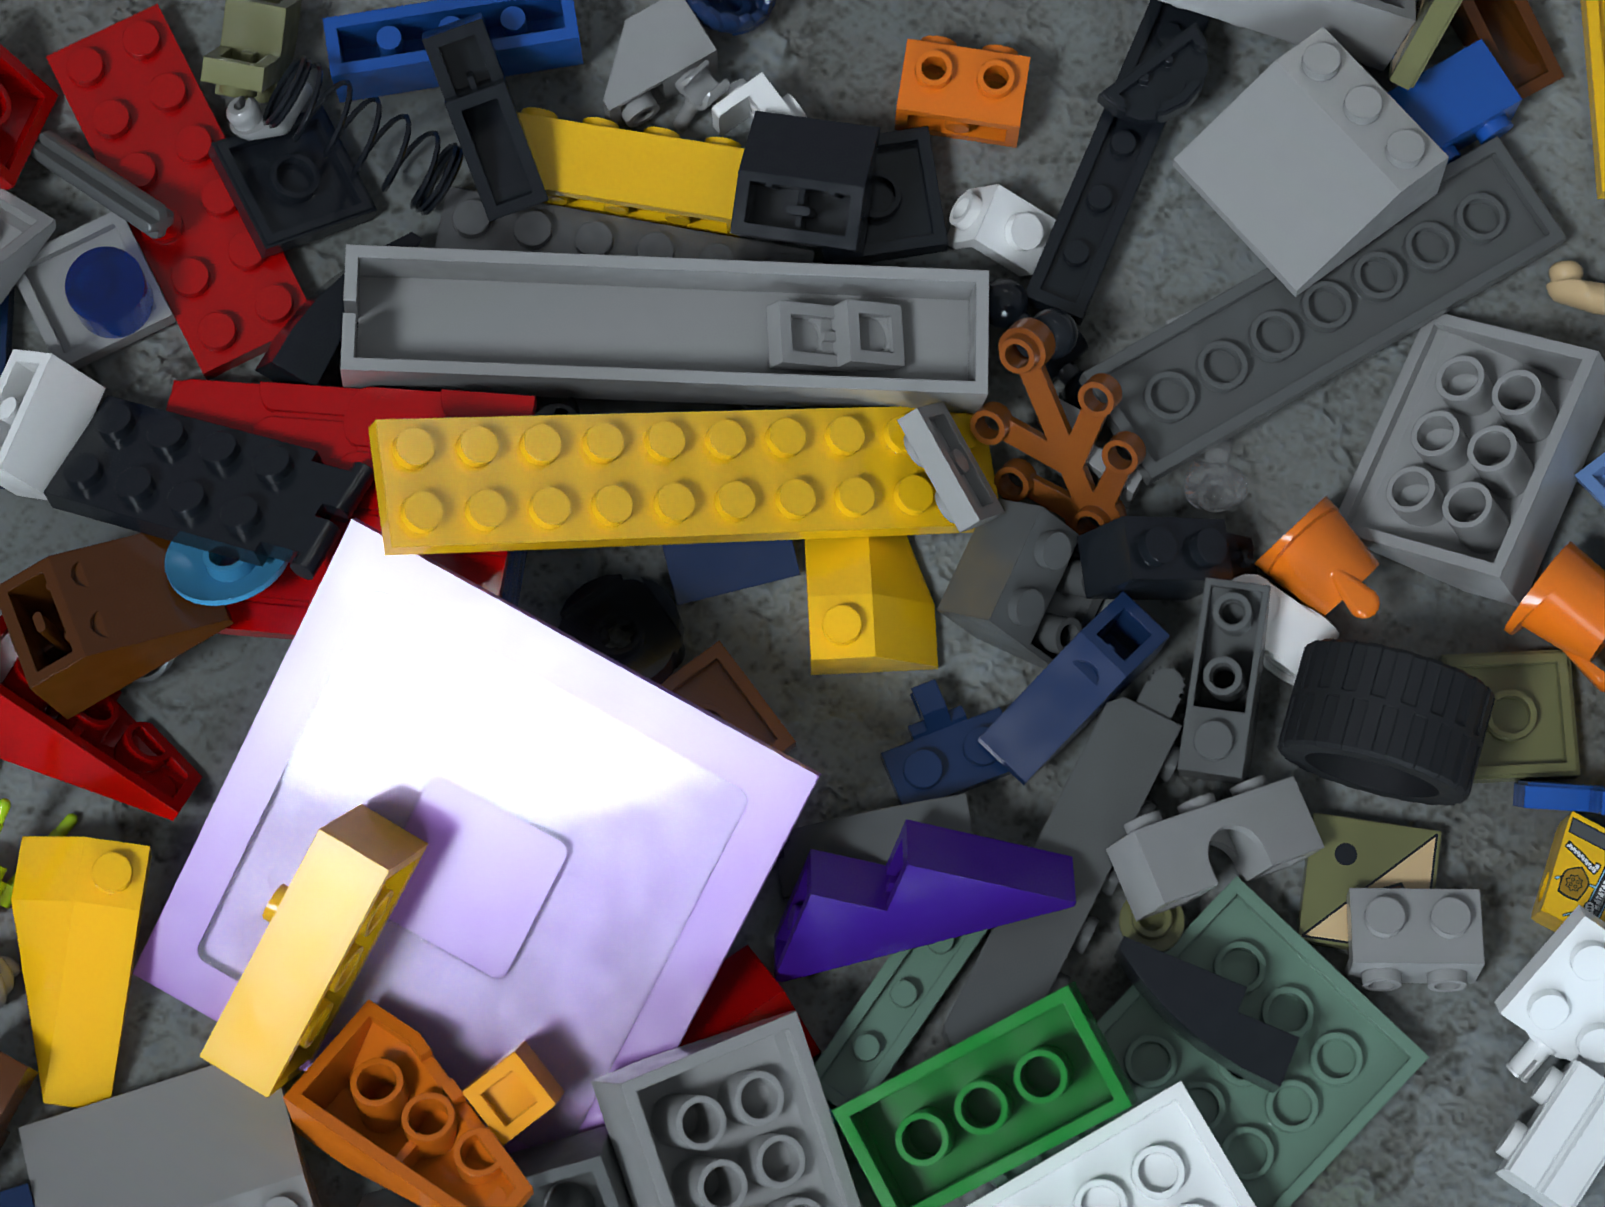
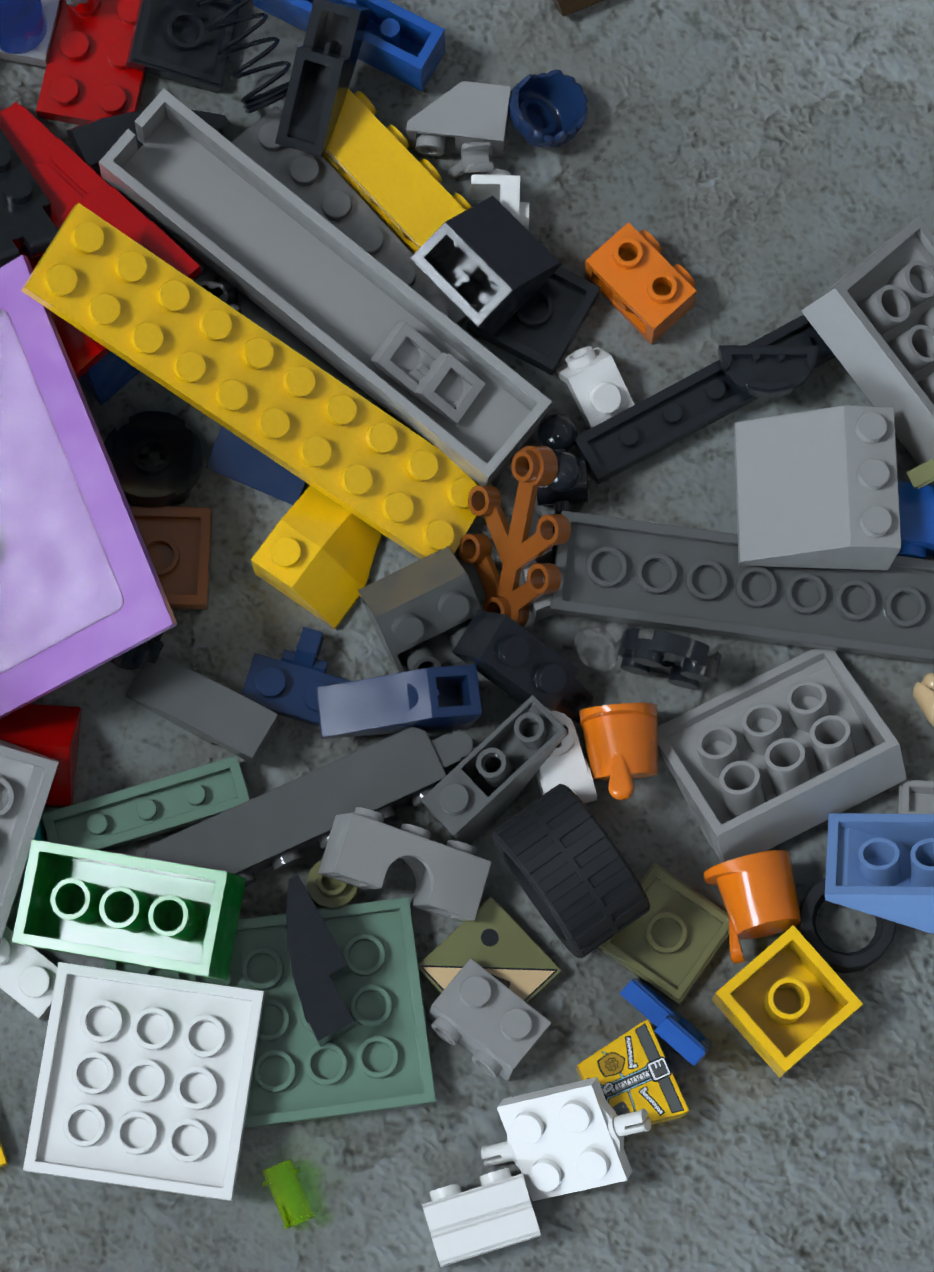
camera: 40 degrees right, 0 degrees up
(928, 892) = (201, 756): dark purple slope -> none
(959, 482) = (431, 505): light grey plate -> none
(1305, 434) = (668, 654): none -> black plate

